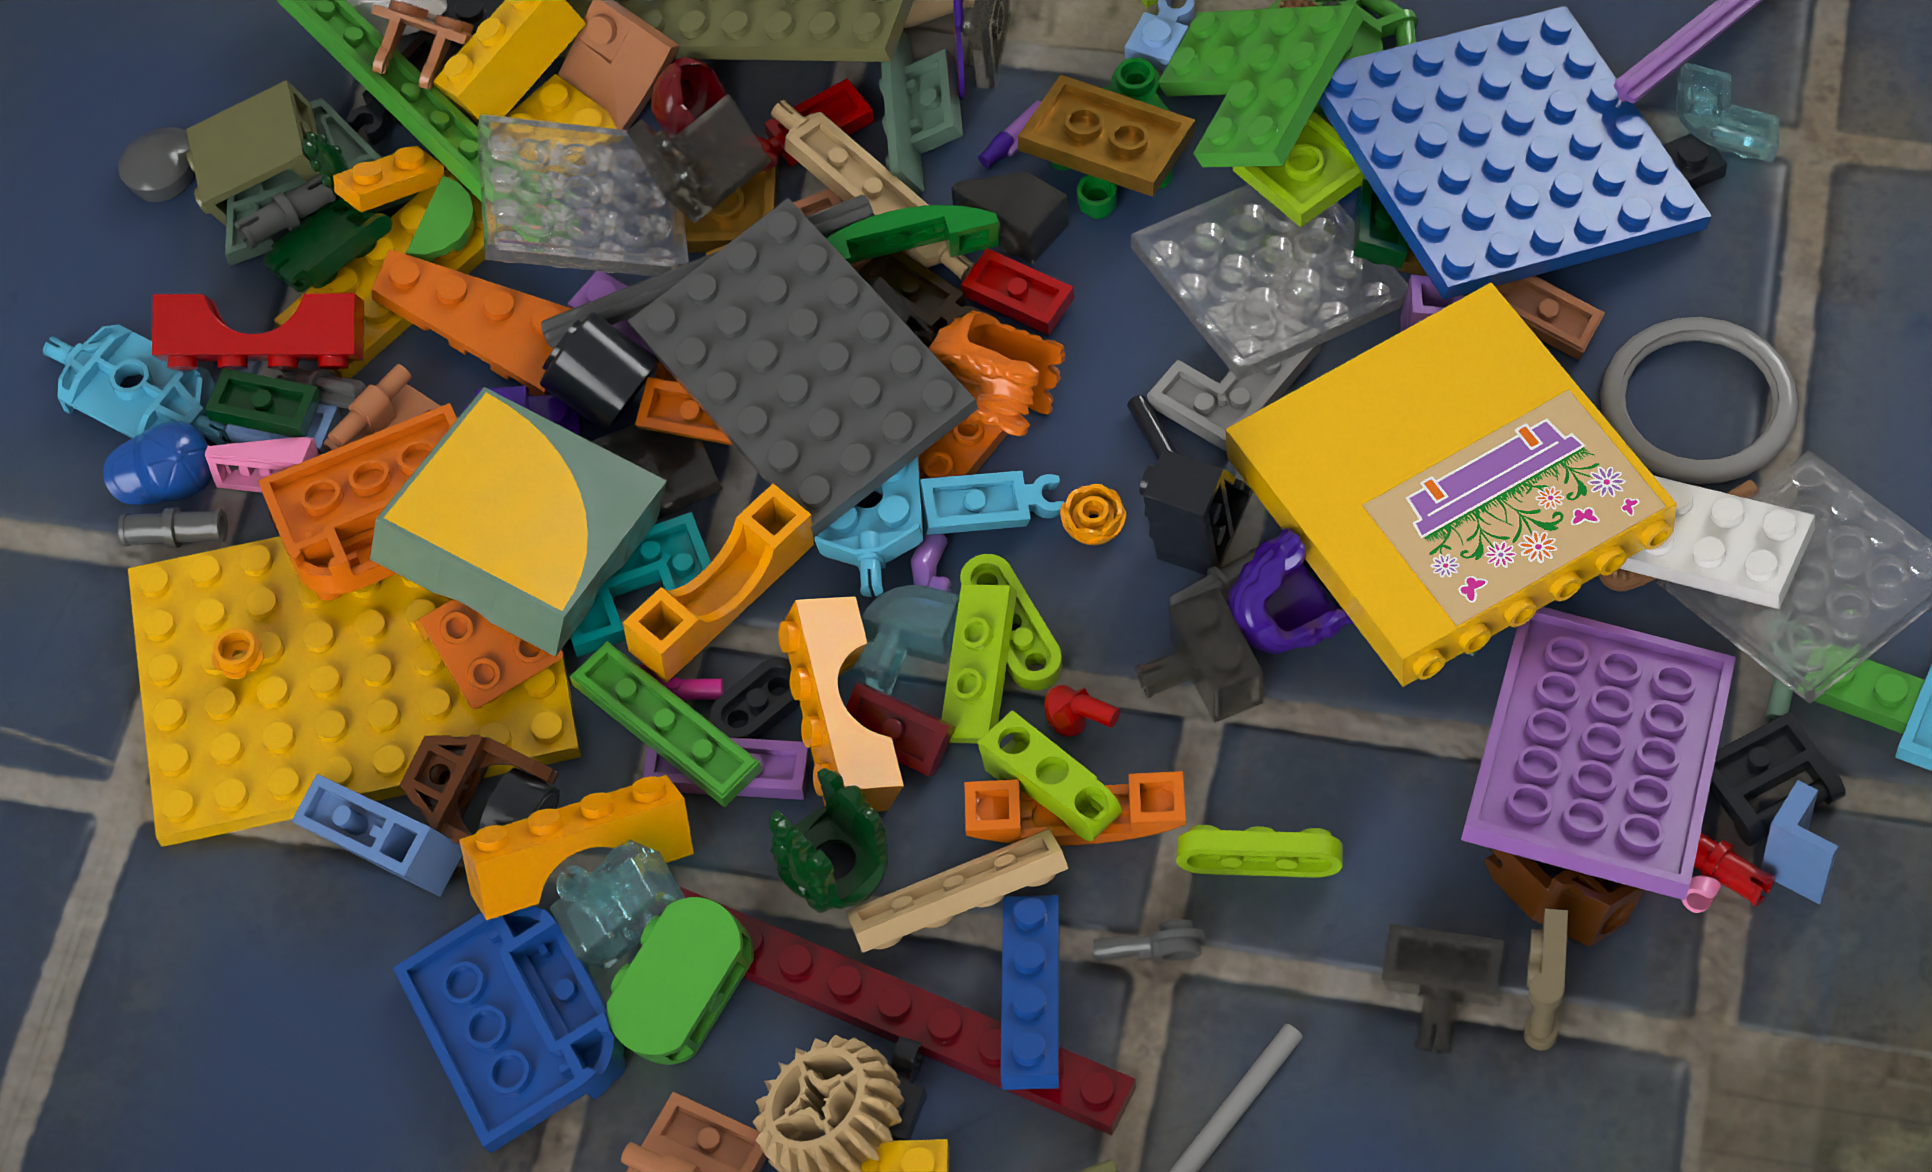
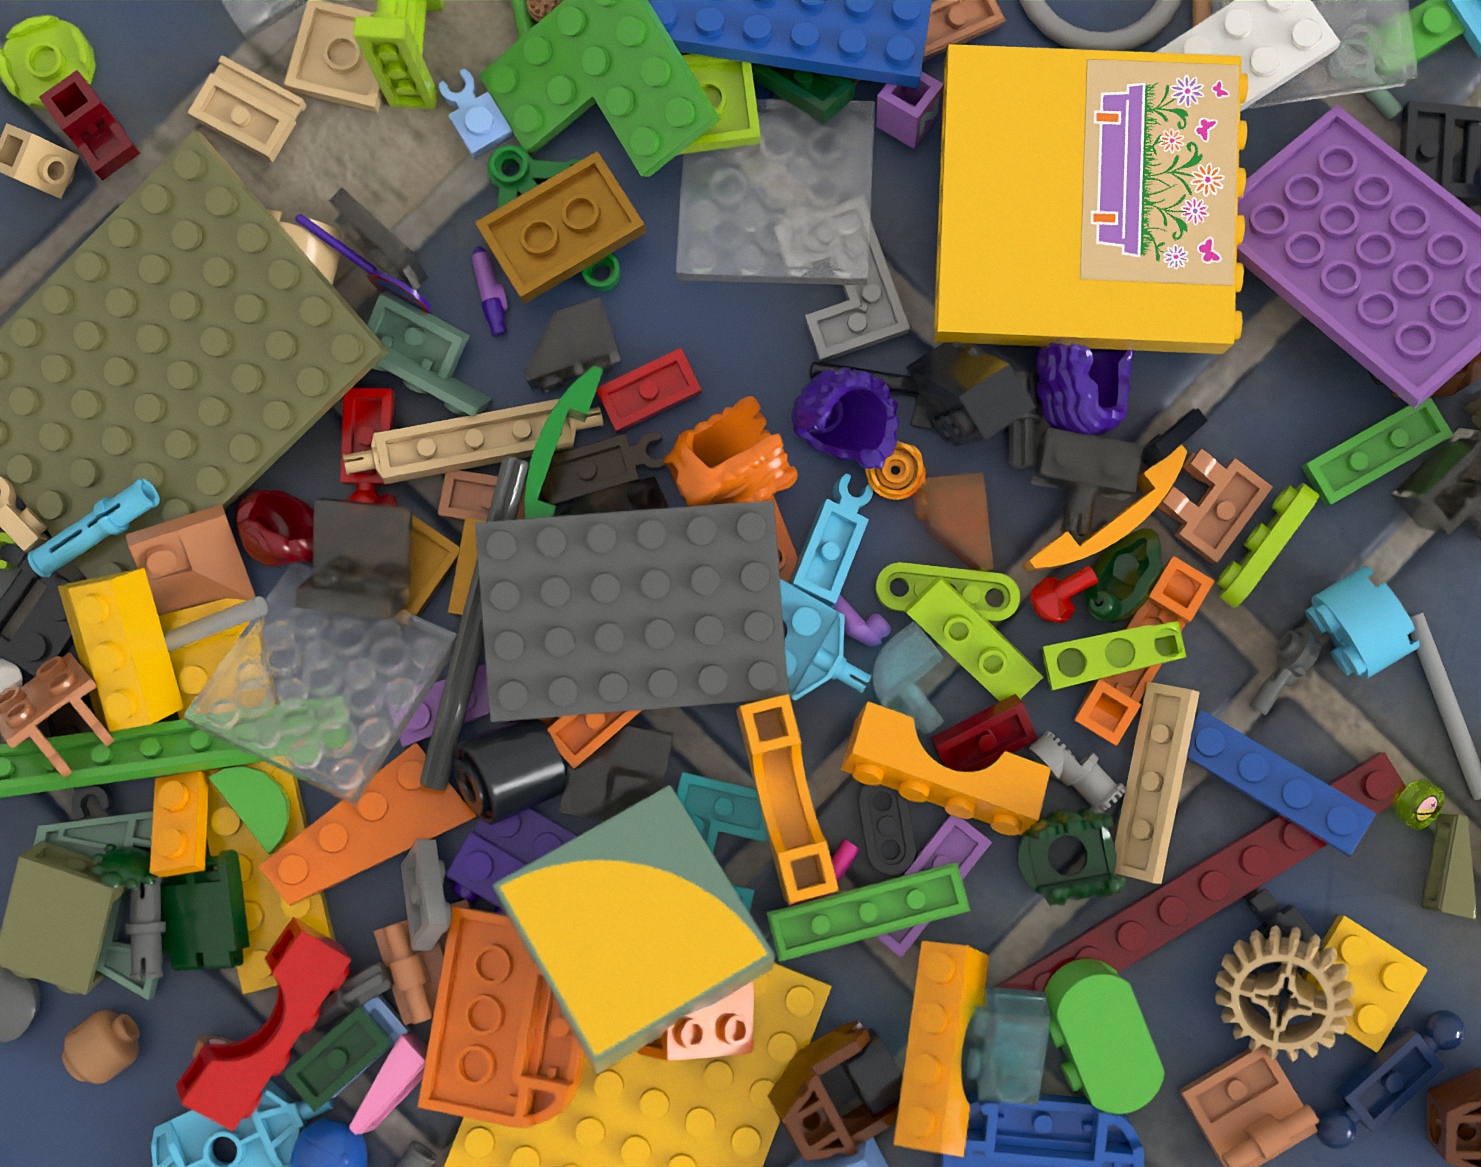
camera: 65 degrees left, 25 degrees up
(164, 248) = (101, 1046): none -> medium nougat head
(434, 387) = (424, 895): none -> light grey plate
(575, 99) = (215, 623): none -> light grey bar
(920, 826) = (1084, 775): none -> light grey connector
(1089, 585) = (957, 517): none -> clear orange slope
(1106, 1136) = (1420, 804): none -> clear neon green tile
(1124, 435) = (848, 416): none -> dark purple hair
(1127, 751) = (1125, 576): none -> dark green arm
(1238, 964) = (1363, 624): none -> medium azure brick
(1249, 725) = (1153, 482): none -> light orange slope
(1263, 796) = (1221, 511): none -> nougat plate
(1293, 707) = (1163, 445): none -> black tile
(1425, 892) = (1376, 451): none -> bright green plate

